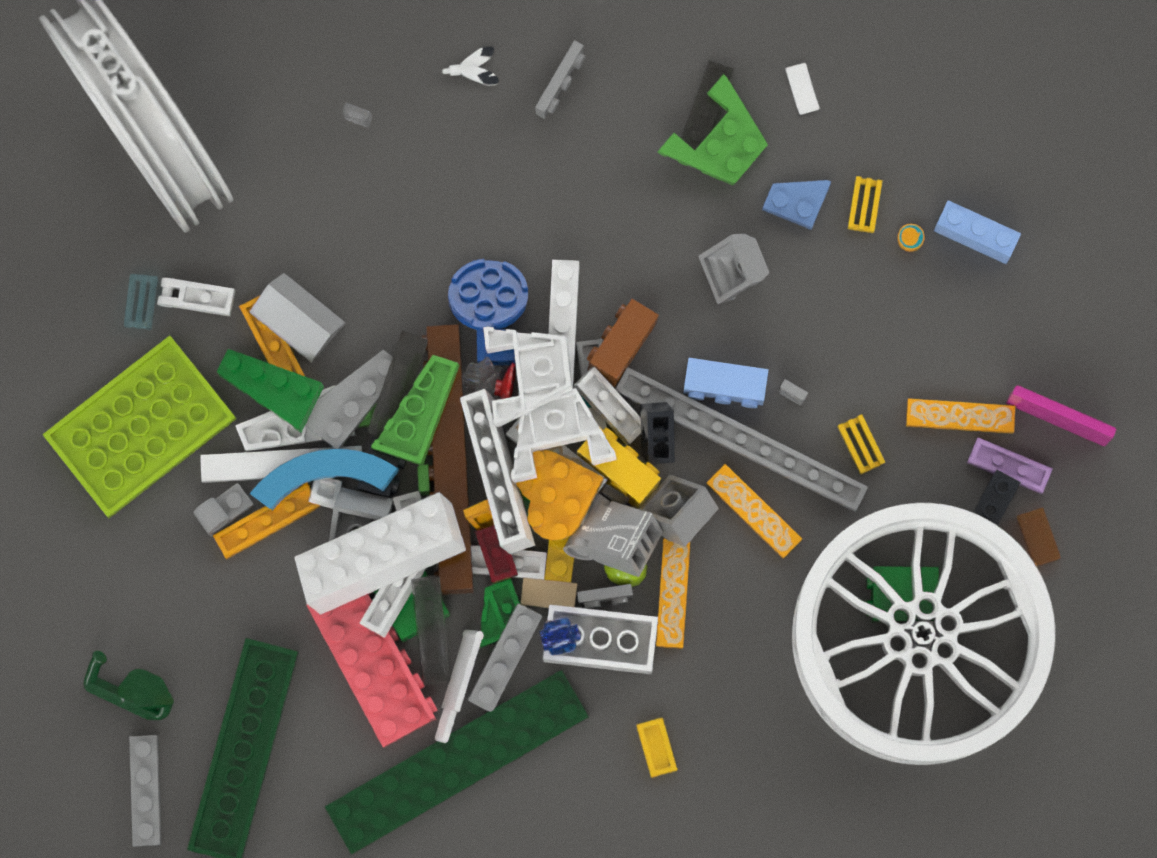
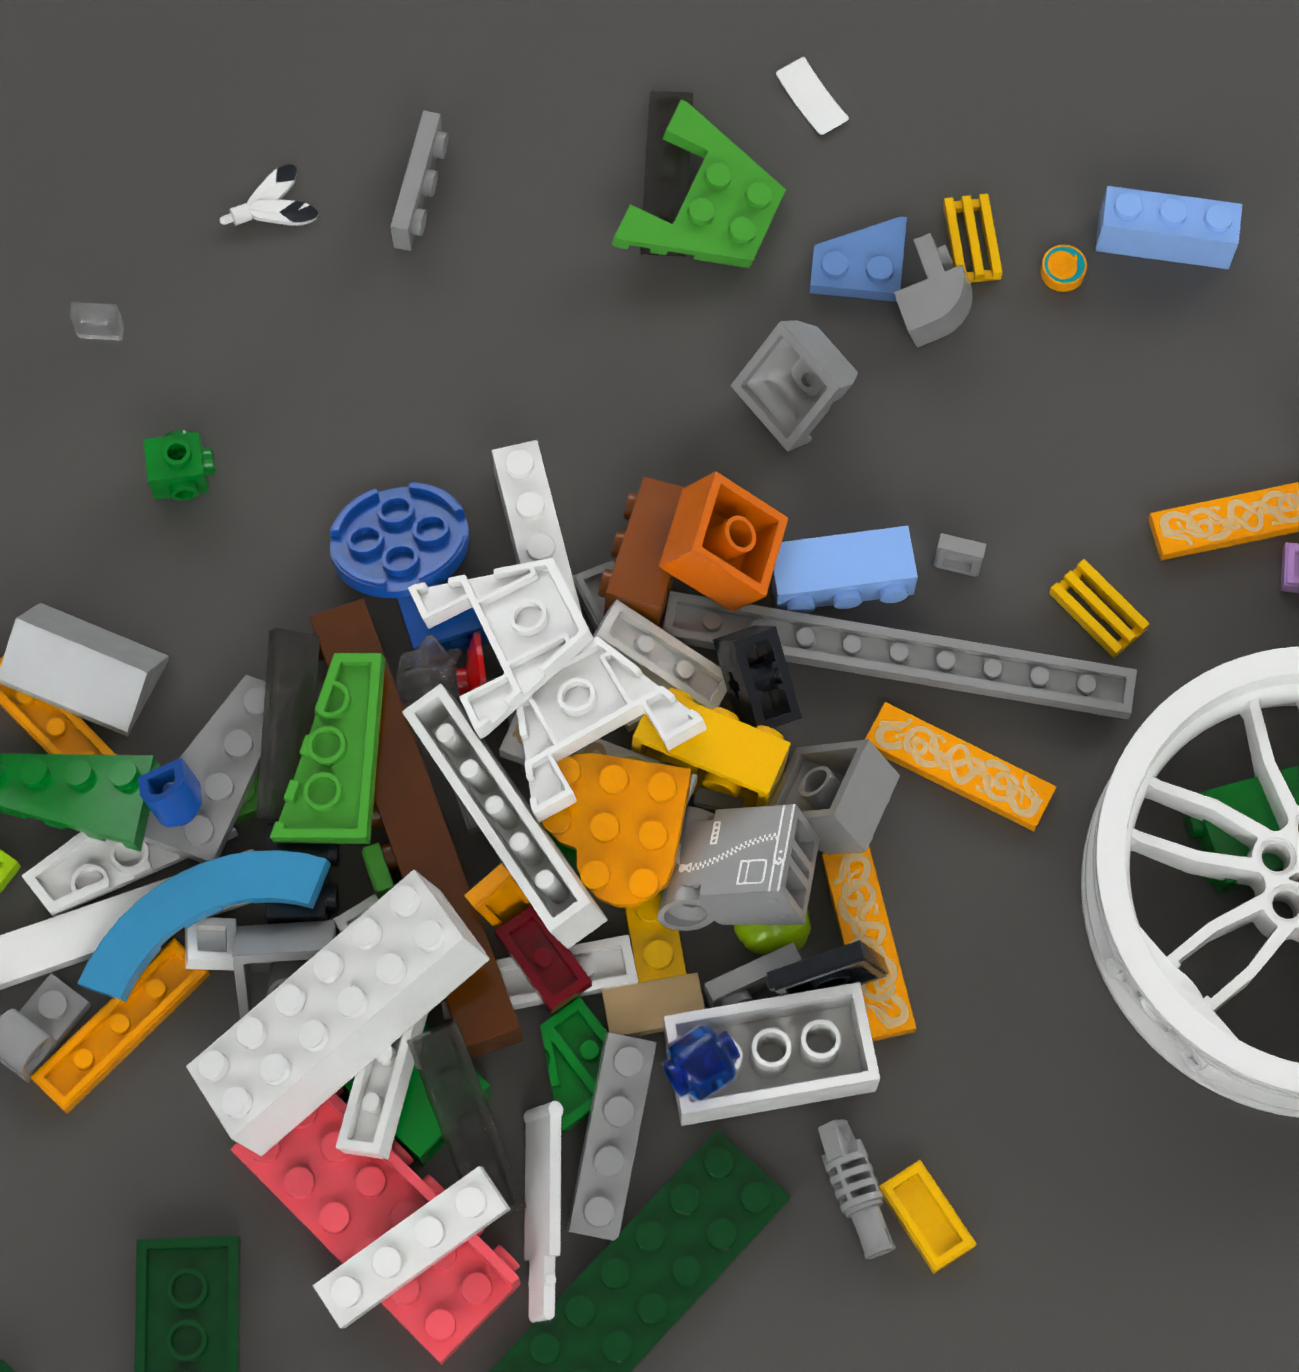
camera: 20 degrees left, 10 degrees down
(325, 408) = (171, 803): none -> blue plate
(377, 207) = (178, 465): none -> green brick
(384, 685) = (411, 1247): none -> white plate
(624, 721) = (855, 1186): none -> light grey hinge
(644, 606) = (832, 968): none -> black tile
(662, 352) = (723, 542): none -> orange brick
(832, 240) = (937, 303): none -> light grey brick

